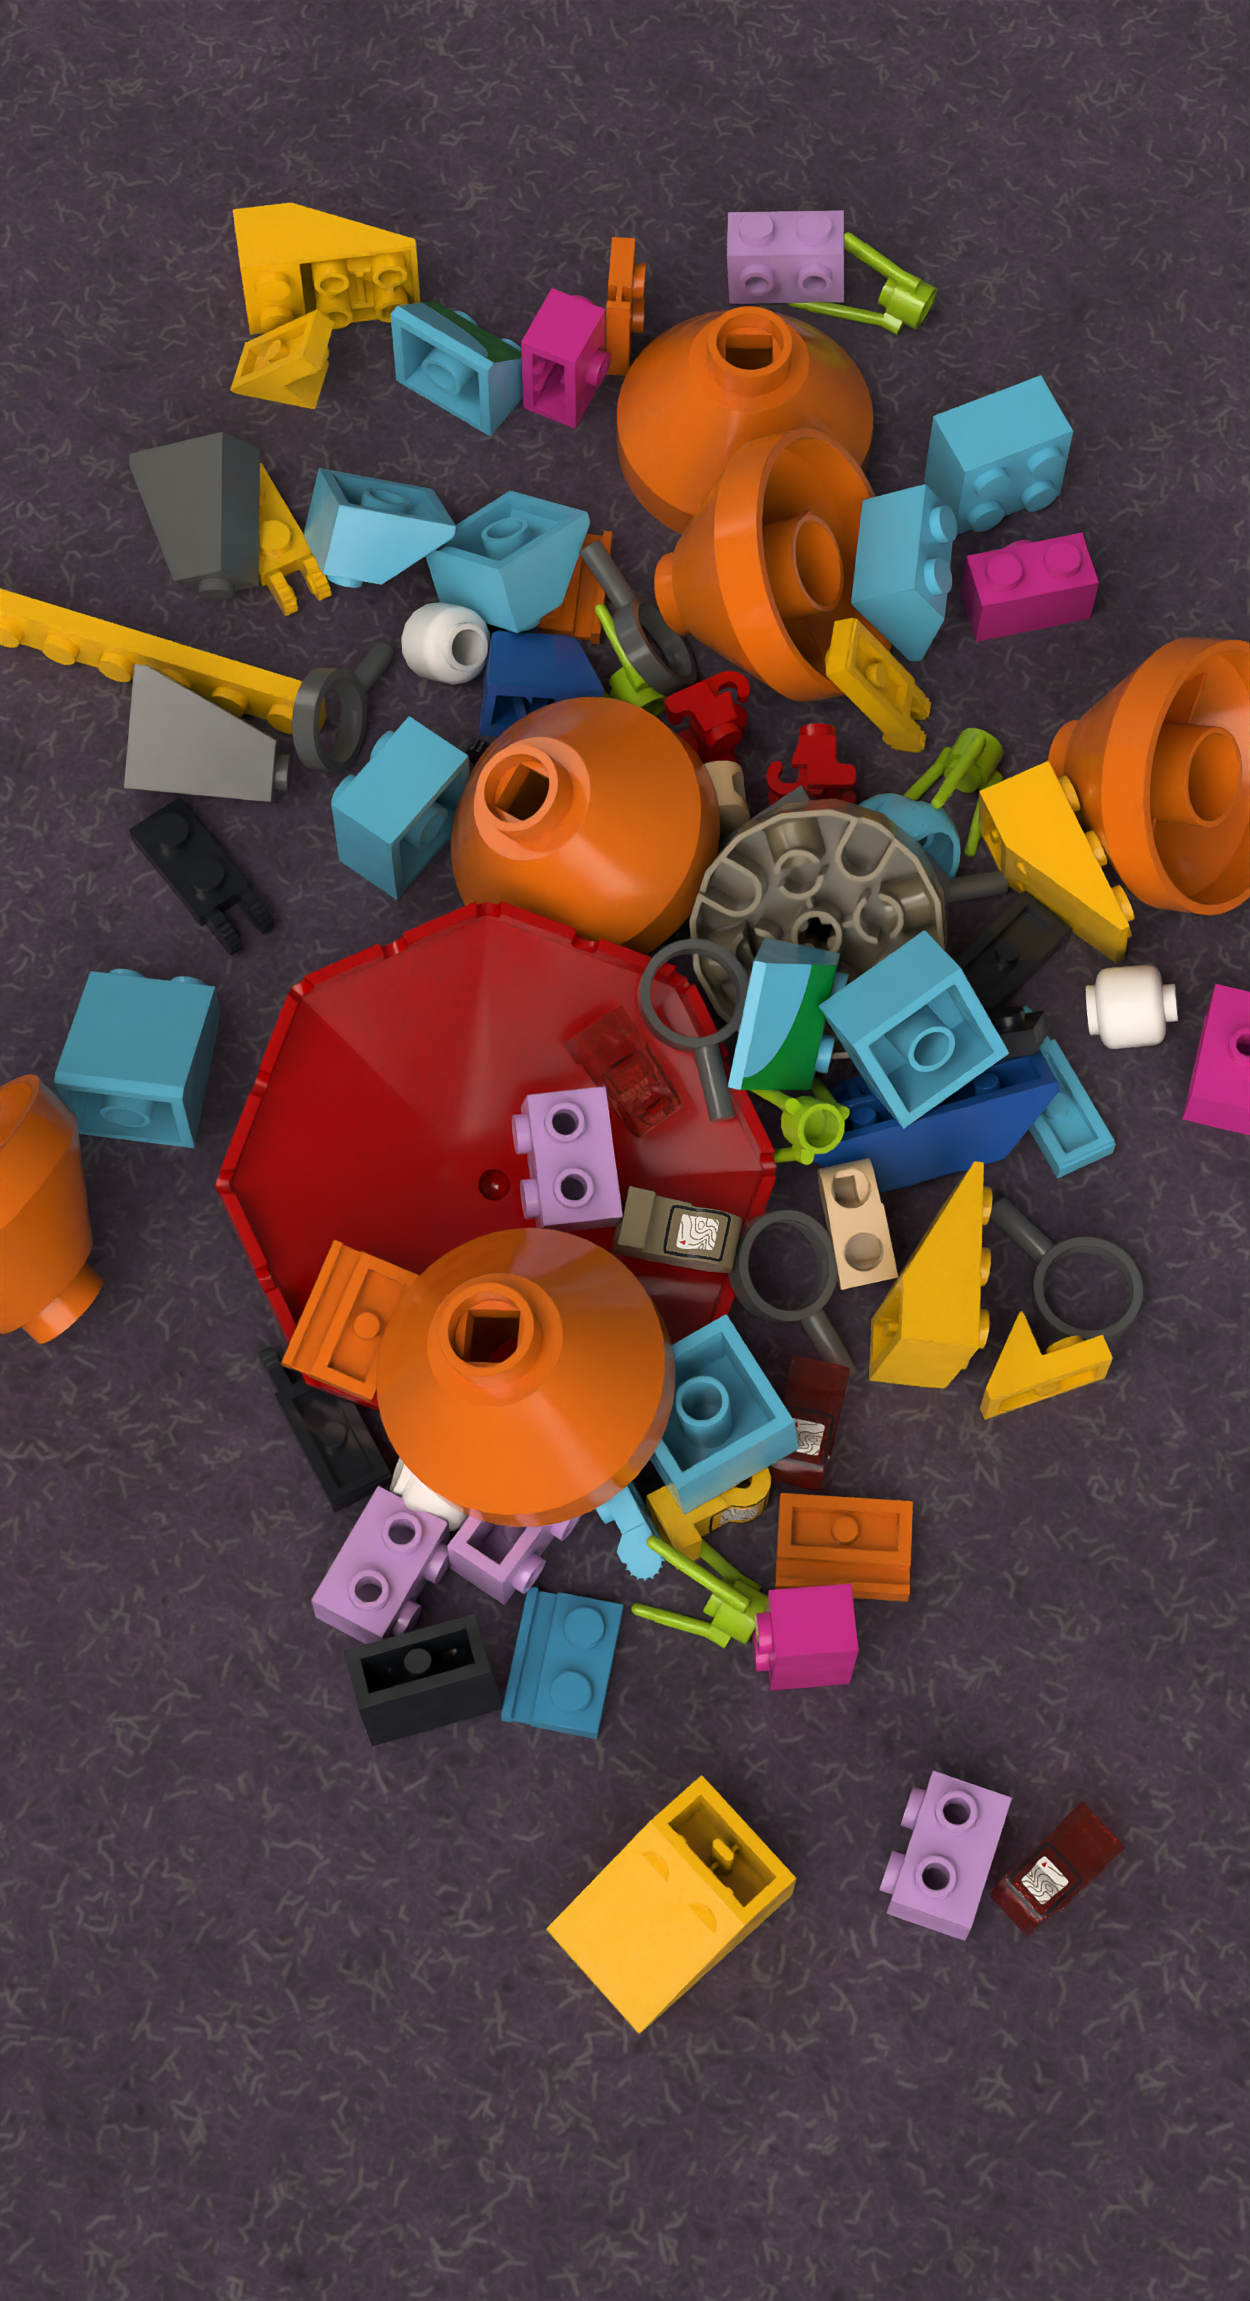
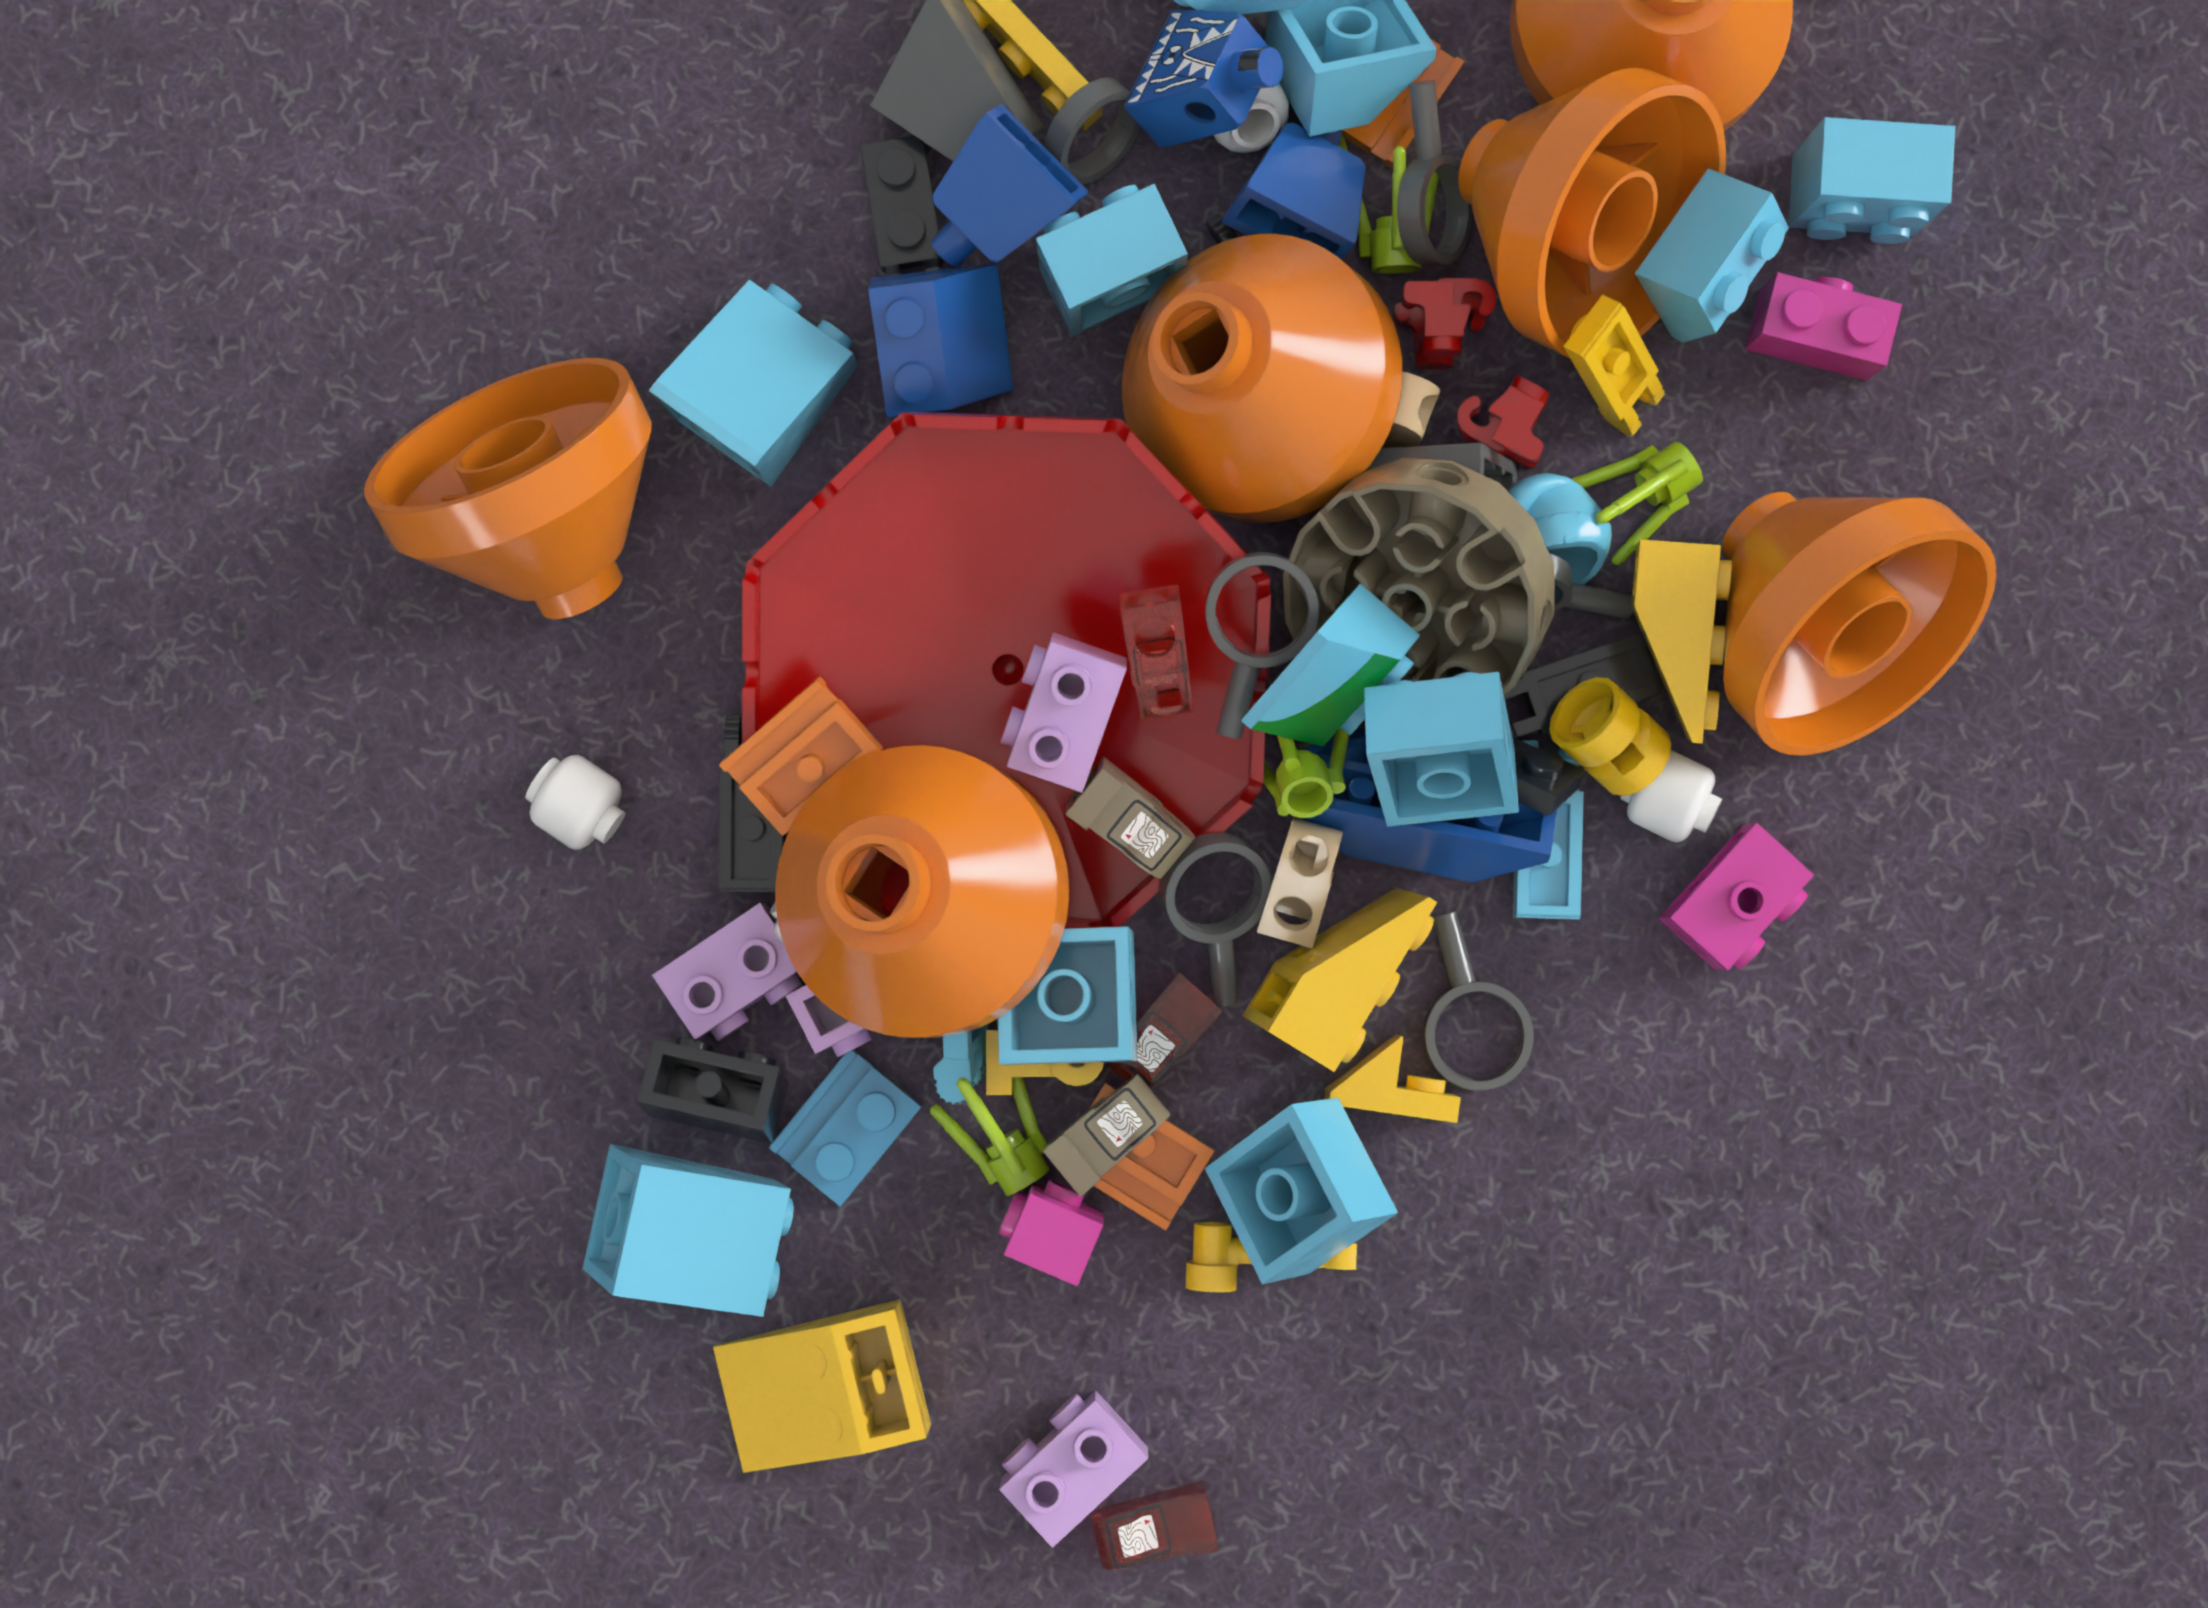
camera: 30 degrees right, 20 degrees up
(156, 1496) = (575, 802): none -> white head
(276, 937) = (940, 338): none -> blue slope
(277, 795) = (1000, 191): none -> blue torso
(402, 627) = (1201, 76): none -> blue torso
(462, 1824) = (687, 1232): none -> medium azure slope
(805, 1526) = (1106, 1134): none -> dark tan leg
(970, 1595) = (1219, 1254): none -> yellow brick
(1009, 1478) = (1300, 1190): none -> medium azure brick
(1050, 974) = (1610, 736): none -> yellow wheel

